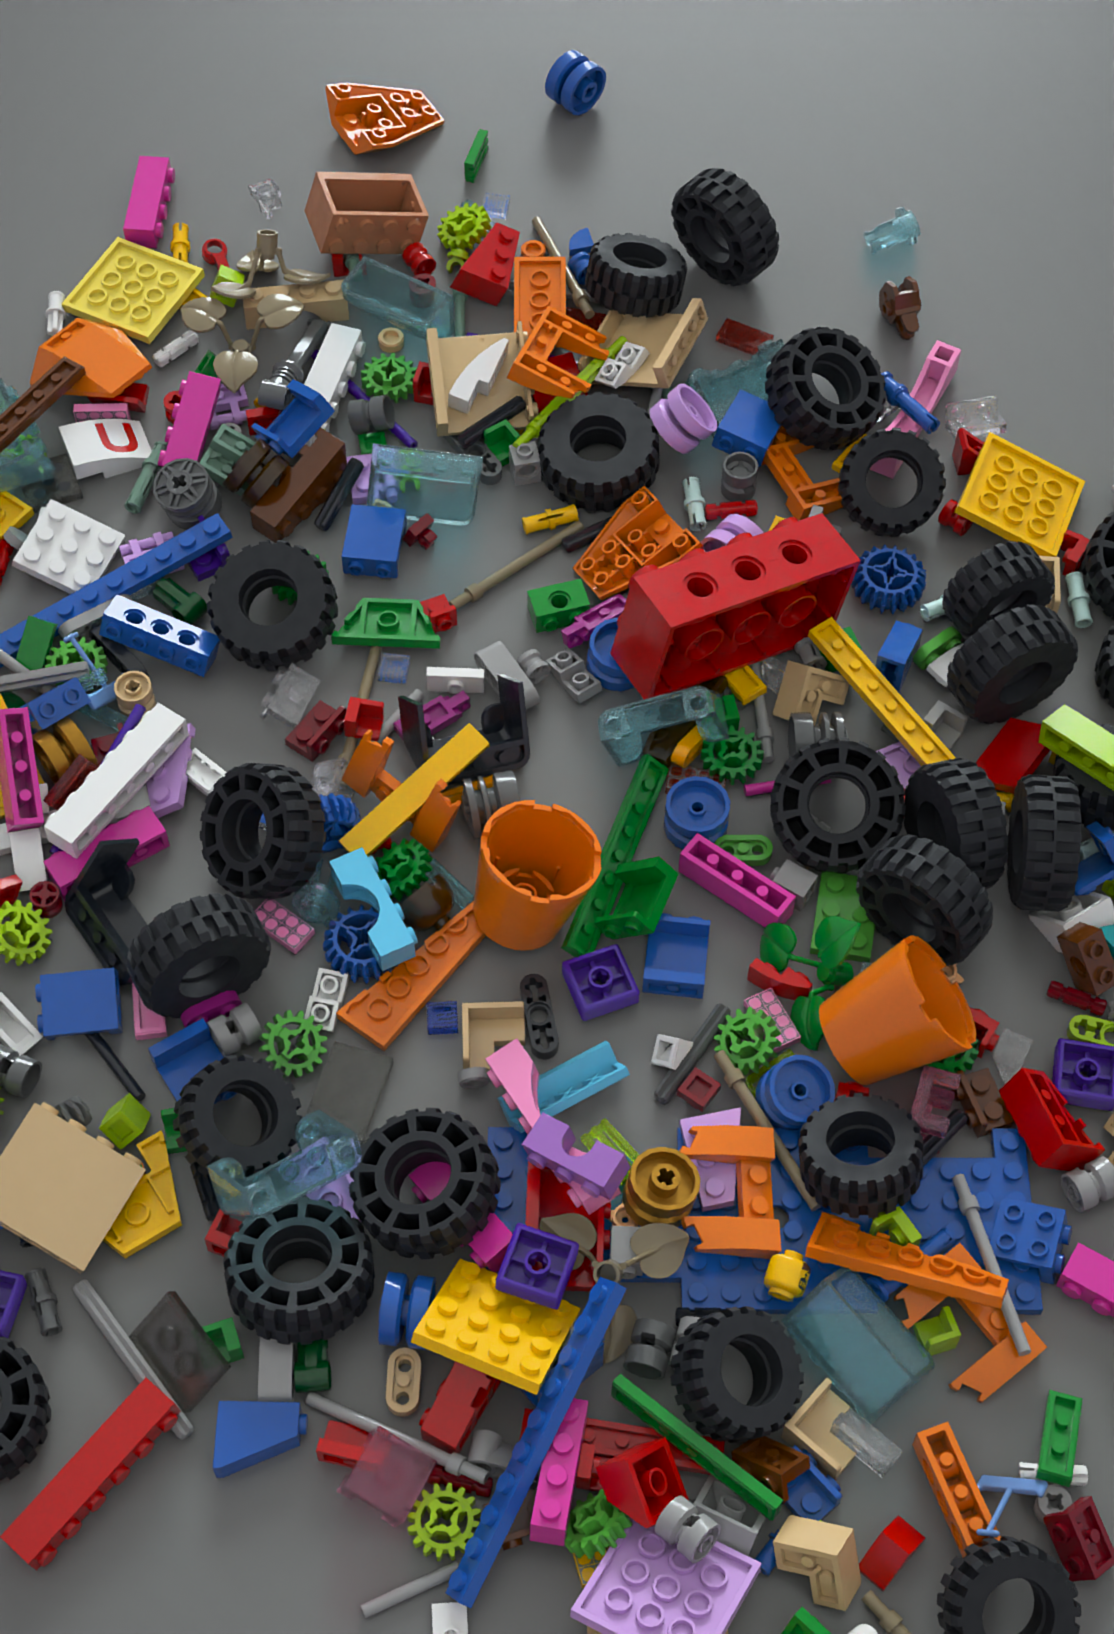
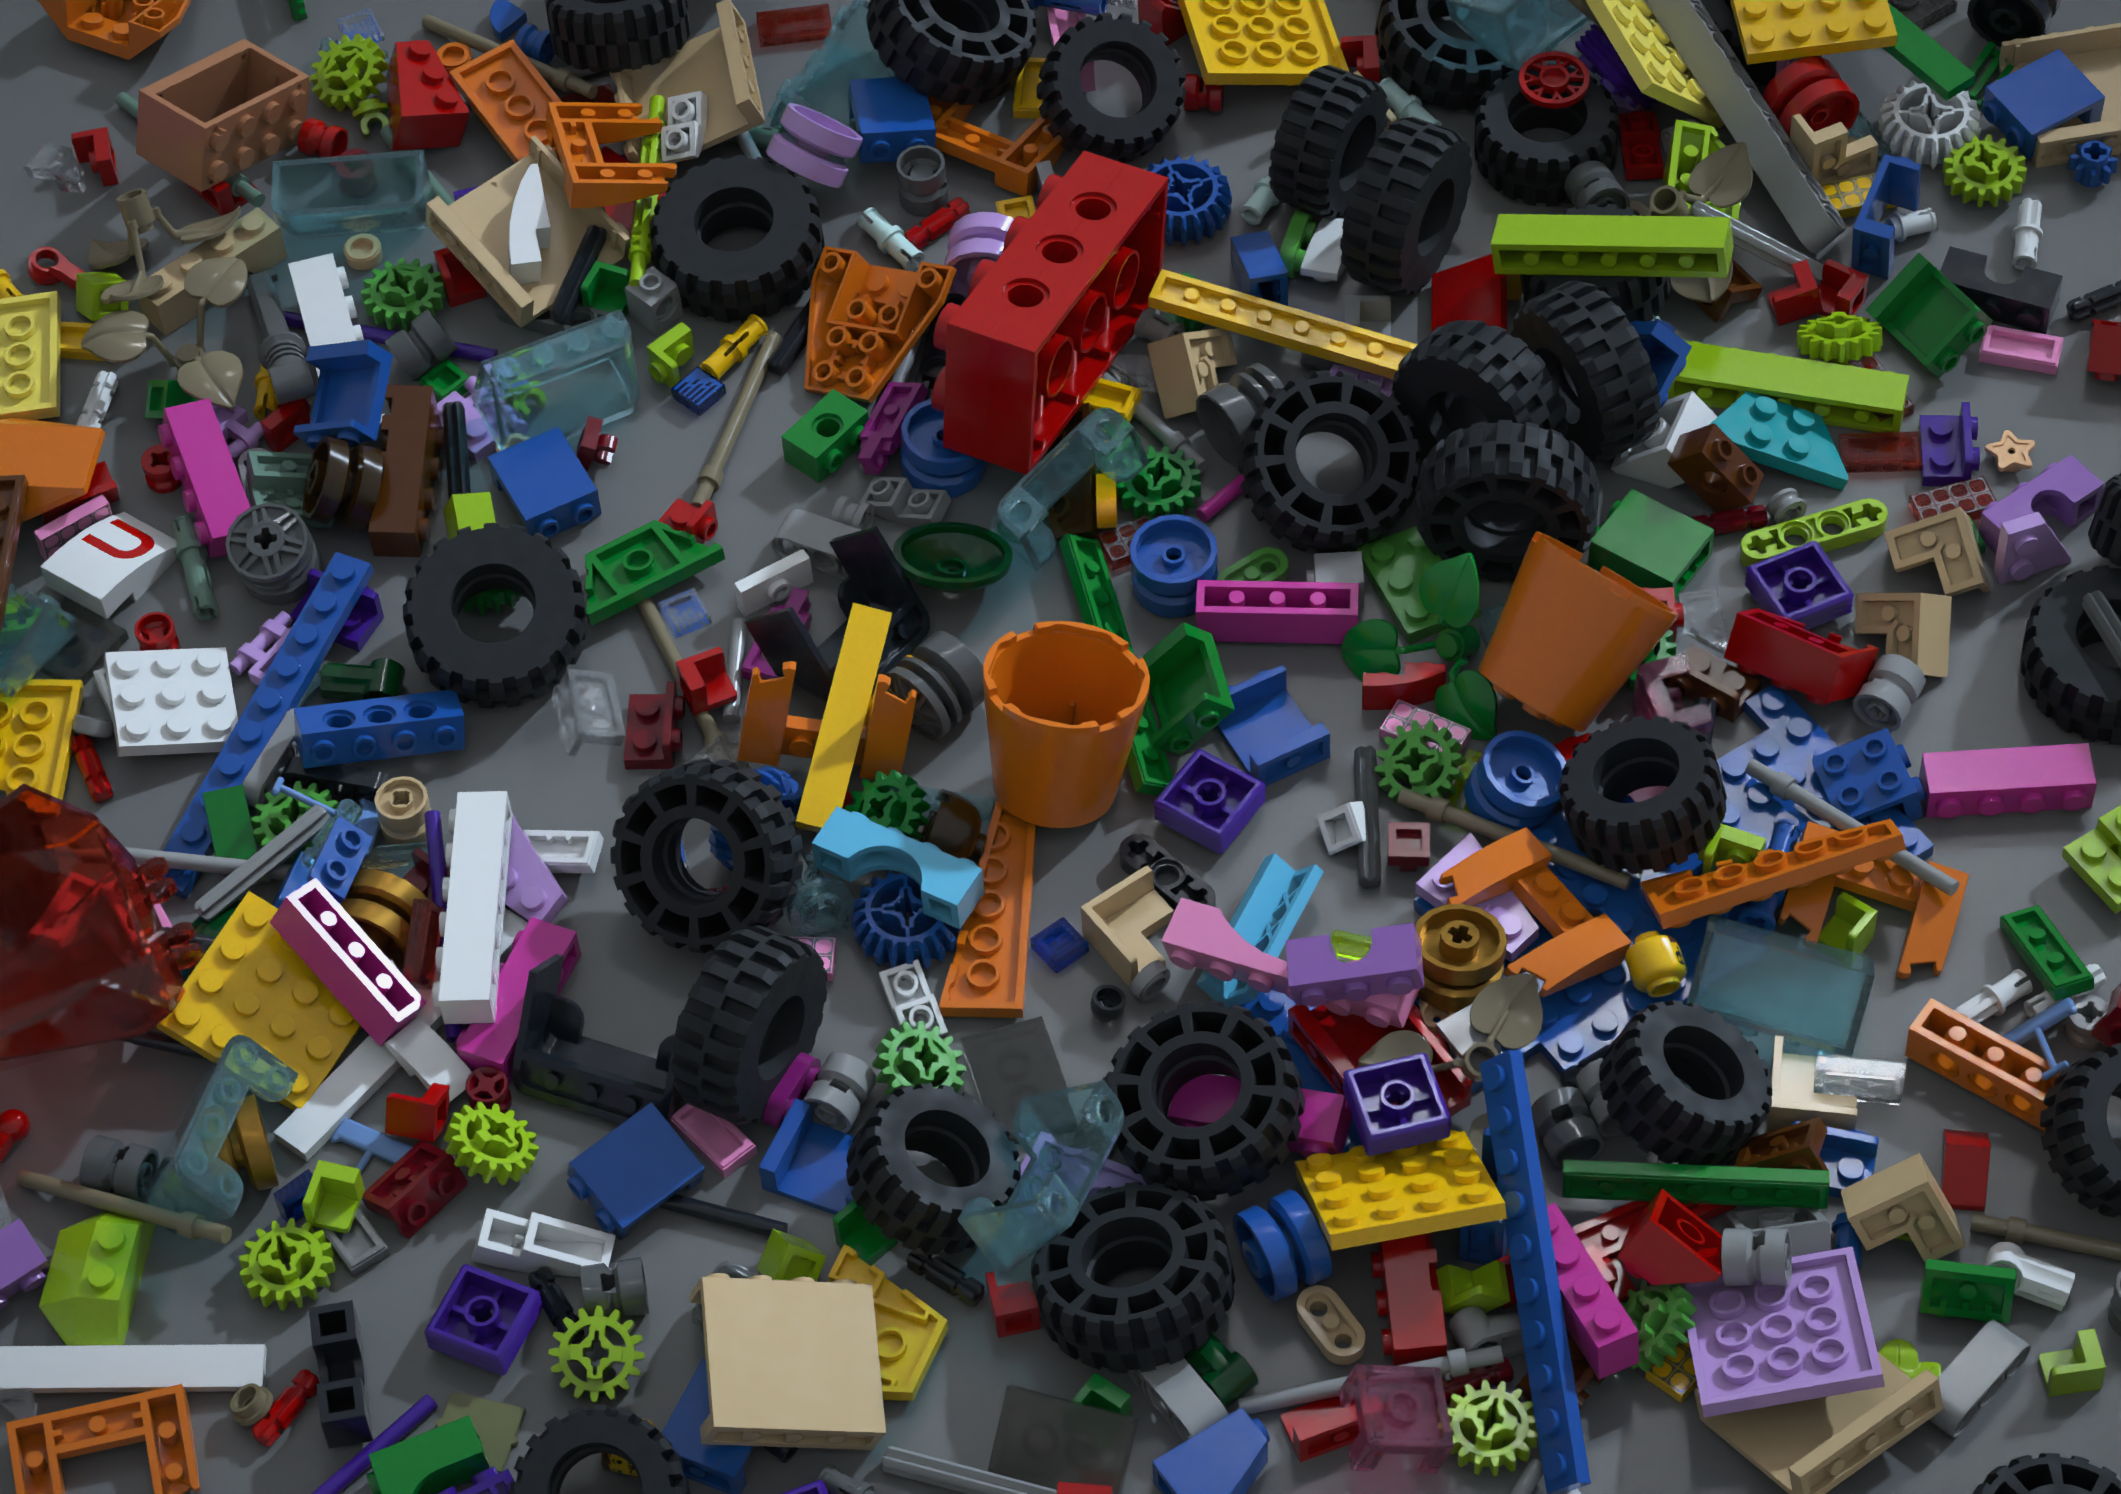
camera: 30 degrees left, 5 degrees down
(92, 505) = (156, 632): none -> red wheel
(293, 201) = (97, 148): none -> red bracket
(316, 536) = (467, 511): none -> lime panel
(444, 1074) = (1113, 1003): none -> black hinge
(503, 1418) = (1481, 1287): none -> lime panel
(509, 500) = (669, 352): none -> lime bracket
(510, 534) = (698, 391): none -> clear blue tile
(565, 727) = (953, 556): none -> dark green dish
(998, 1446) = (1995, 998): none -> white axle
(1010, 984) = (1651, 544): none -> green brick

